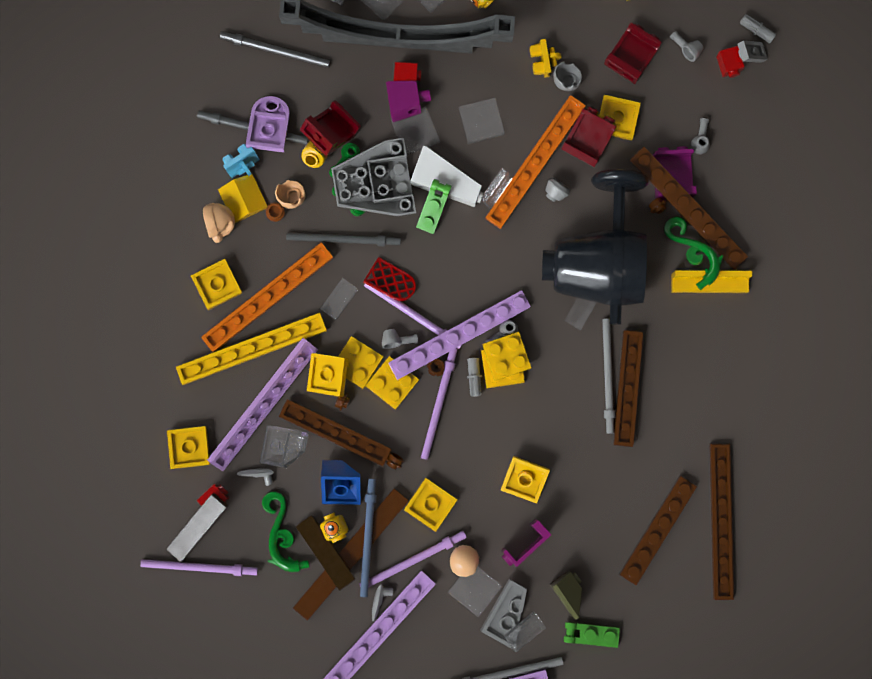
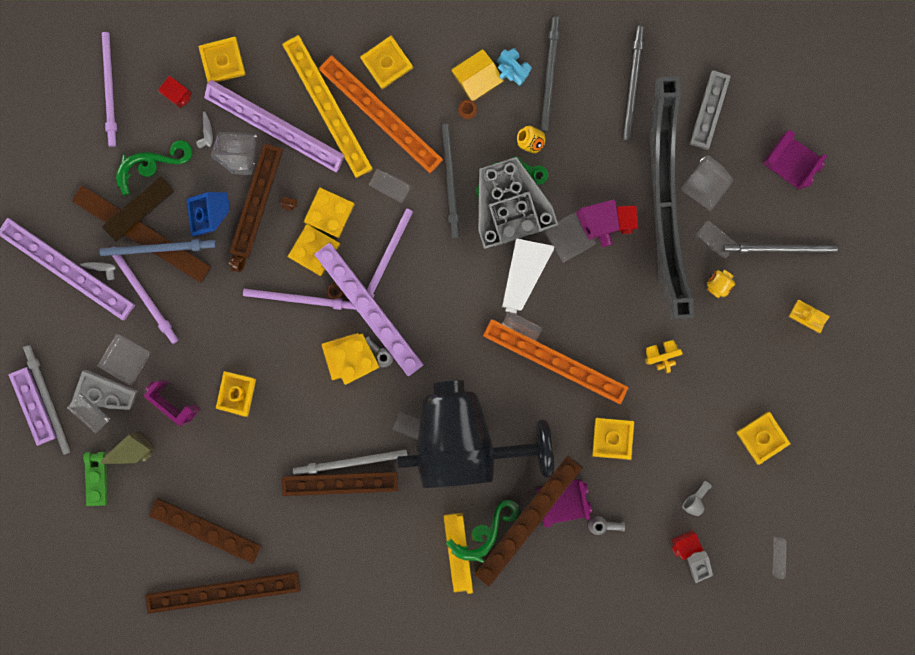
camera: 85 degrees right, 5 degrees up
(197, 527) = (144, 80): tile -> none
(218, 221) = (449, 53): light nougat piece -> none
(268, 127) = (552, 88): lavender tile -> none
(290, 194) = (486, 121): light nougat hair -> none
(327, 374) = (311, 184): yellow plate -> none
(330, 128) = (558, 150): dark red panel -> none
(334, 527) = (163, 213): yellow head -> none
(388, 293) = (429, 232): red window -> none
(392, 340) = (356, 243): light grey bar -> none
(430, 504) = (199, 304): yellow plate -> none
(433, 207) = (493, 265): bright green plate -> none
(464, 560) = (149, 345): light nougat hair -> none
(474, 377) = (330, 330): light grey axle -> none
(481, 120) = (590, 301): clear tile -> none
(556, 190) = (529, 386): light grey cone -> none
(567, 76) = (647, 381): light grey hair -> none
(589, 136) = (588, 412): dark red panel -> none
(633, 52) = (682, 445): dark red panel -> none
(657, 205) = (528, 490): reddish brown plate -> none
(757, 28) = (726, 569): light grey axle -> none

